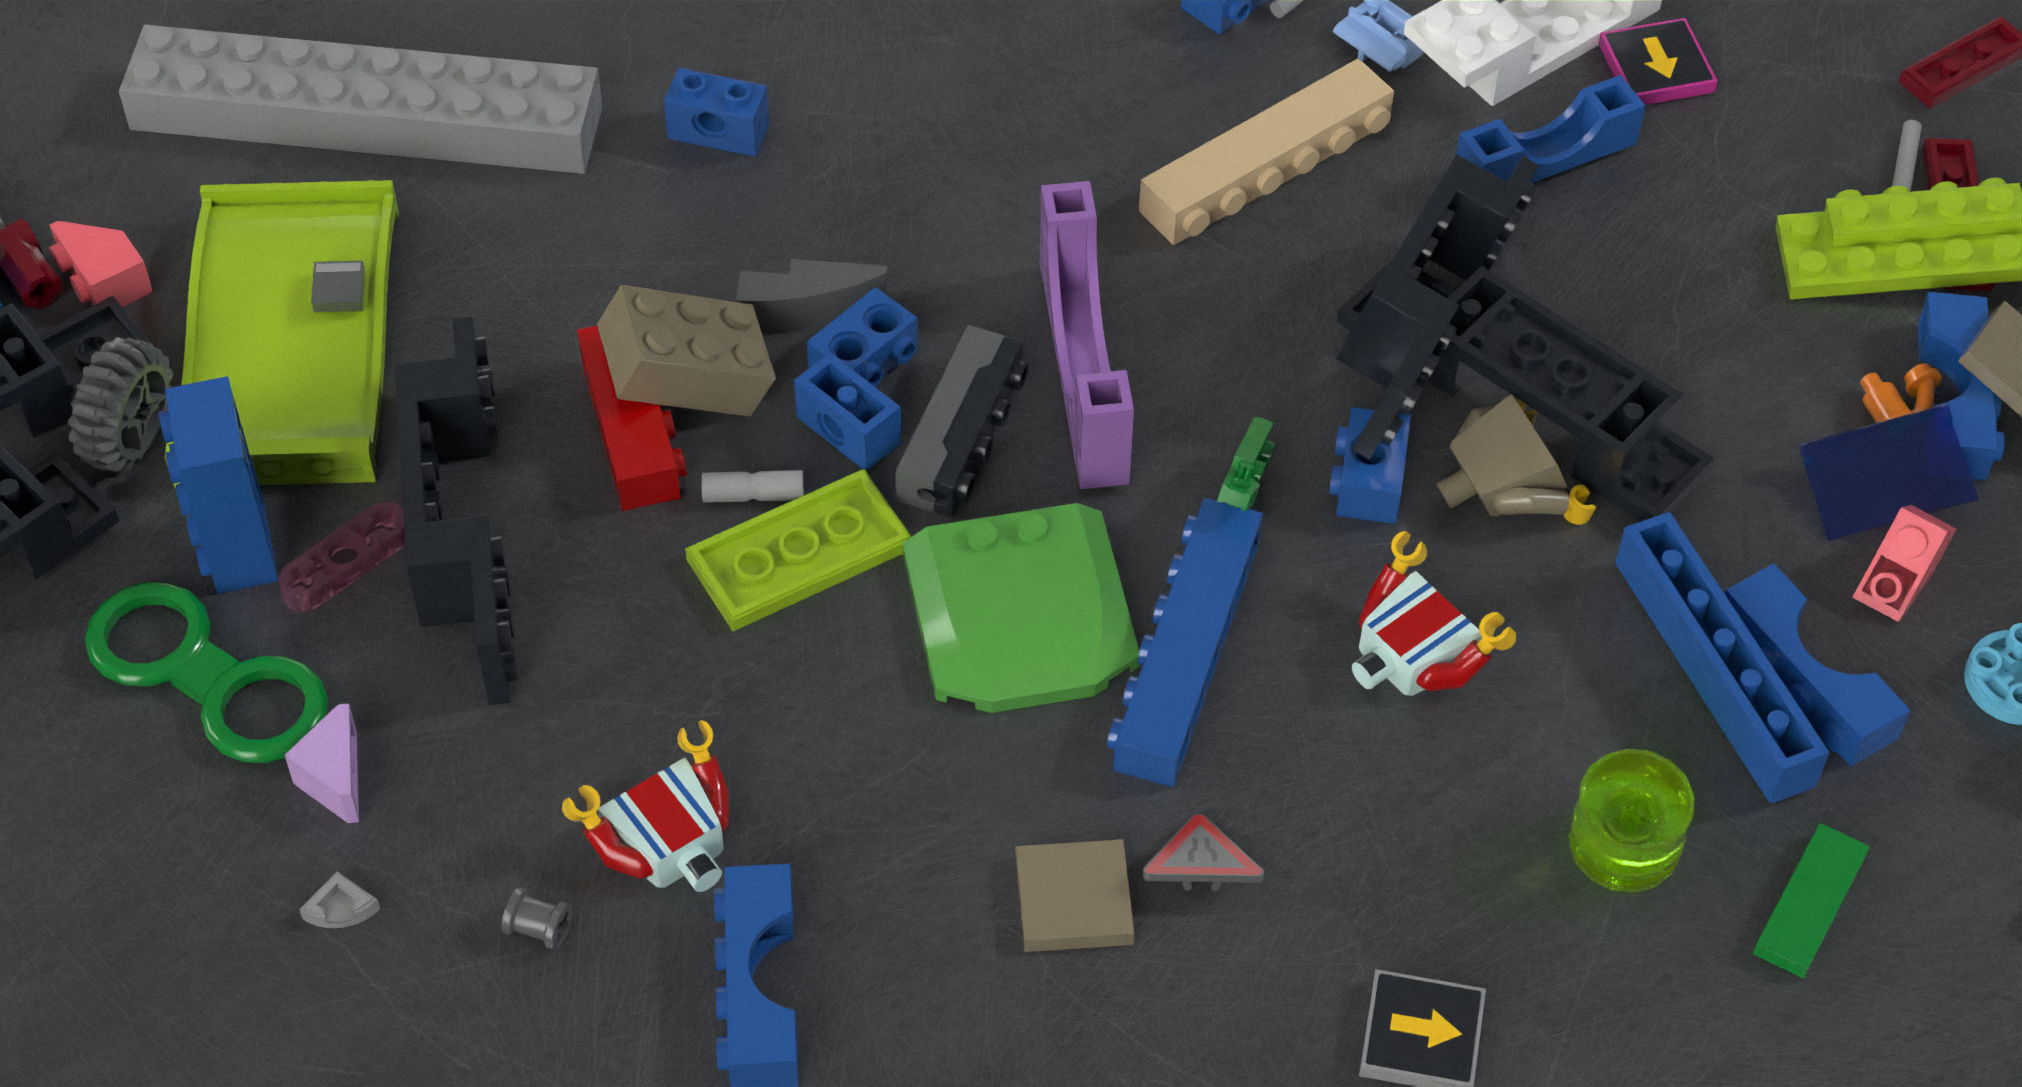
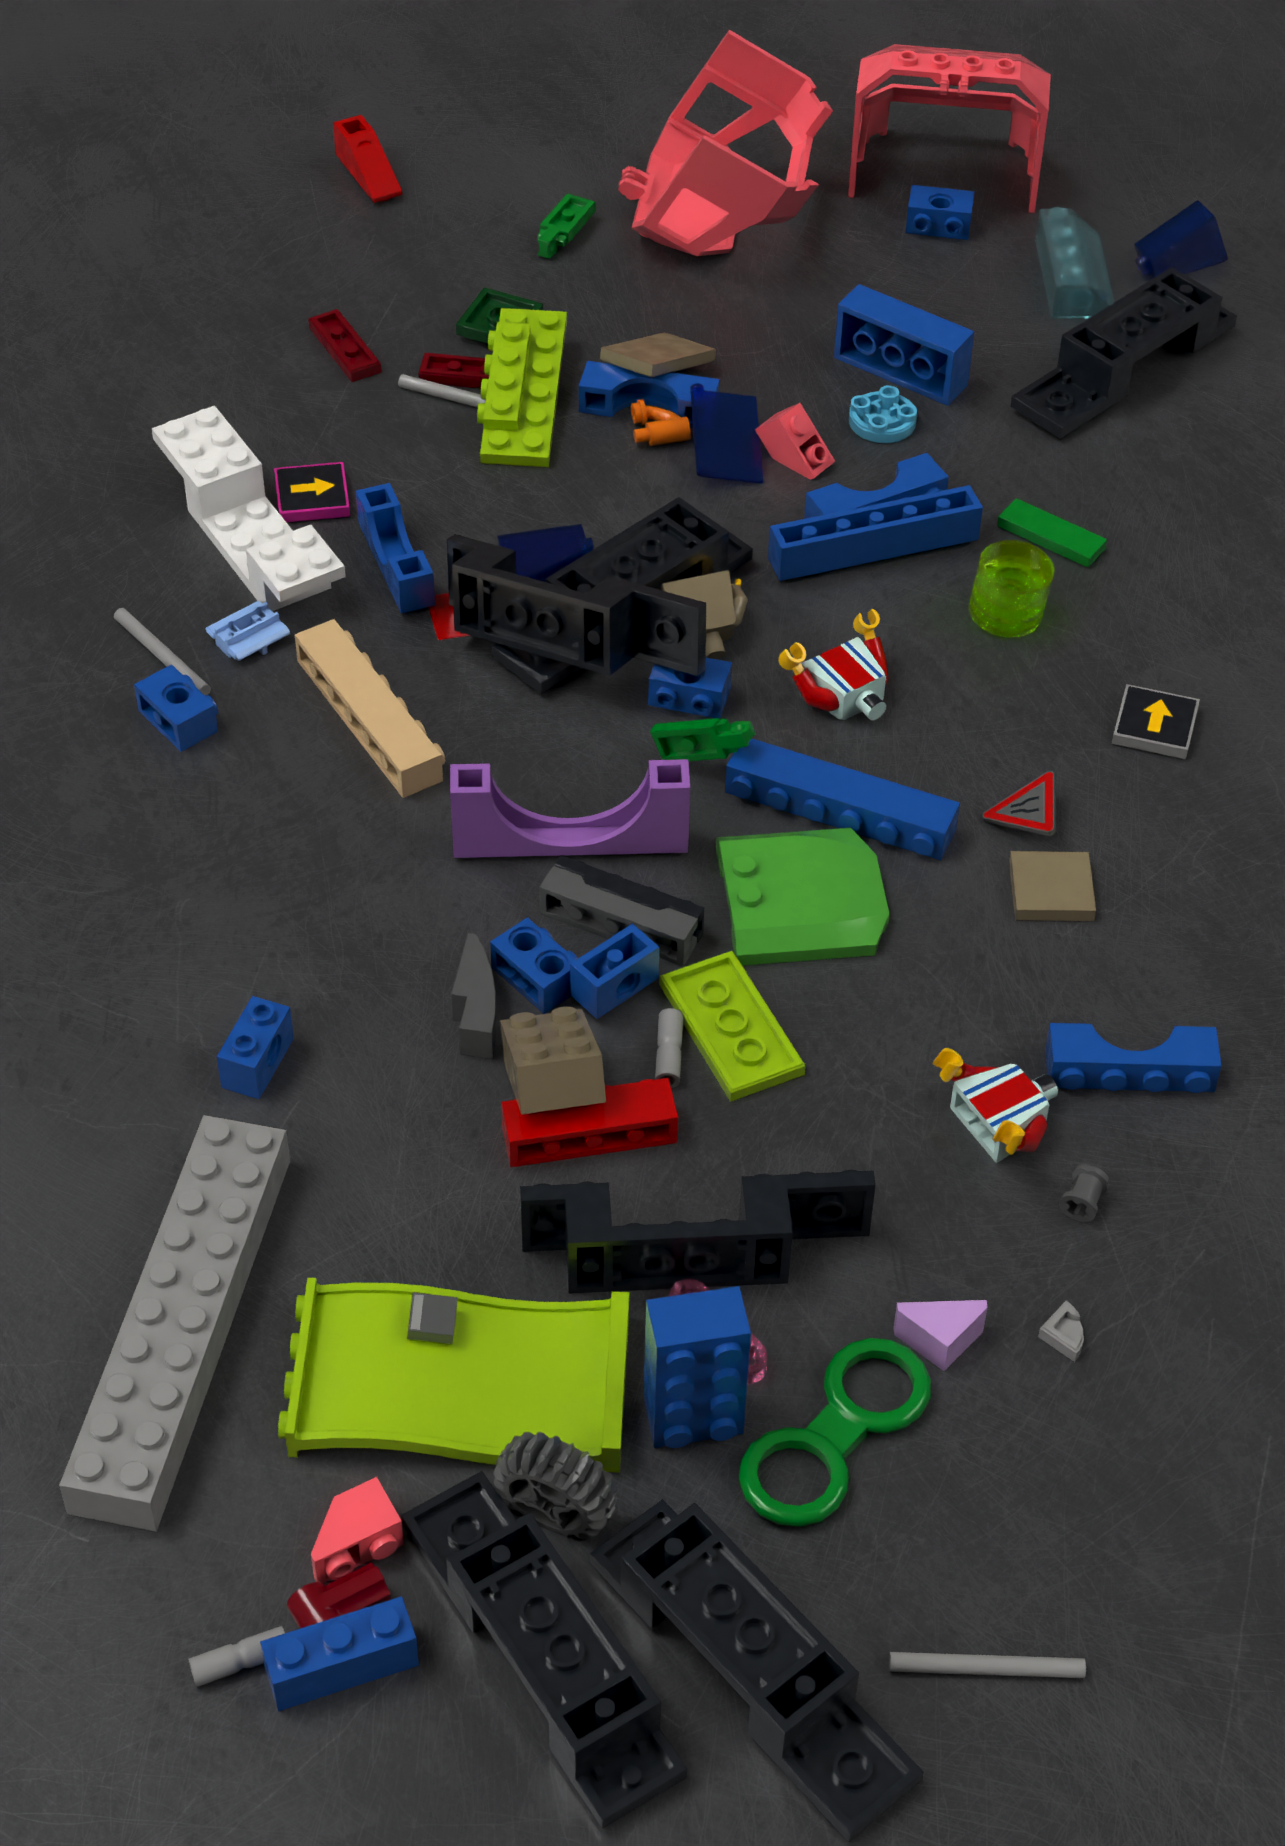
camera: 85 degrees left, 5 degrees down
(1574, 283) = (546, 550): none -> clear blue slope

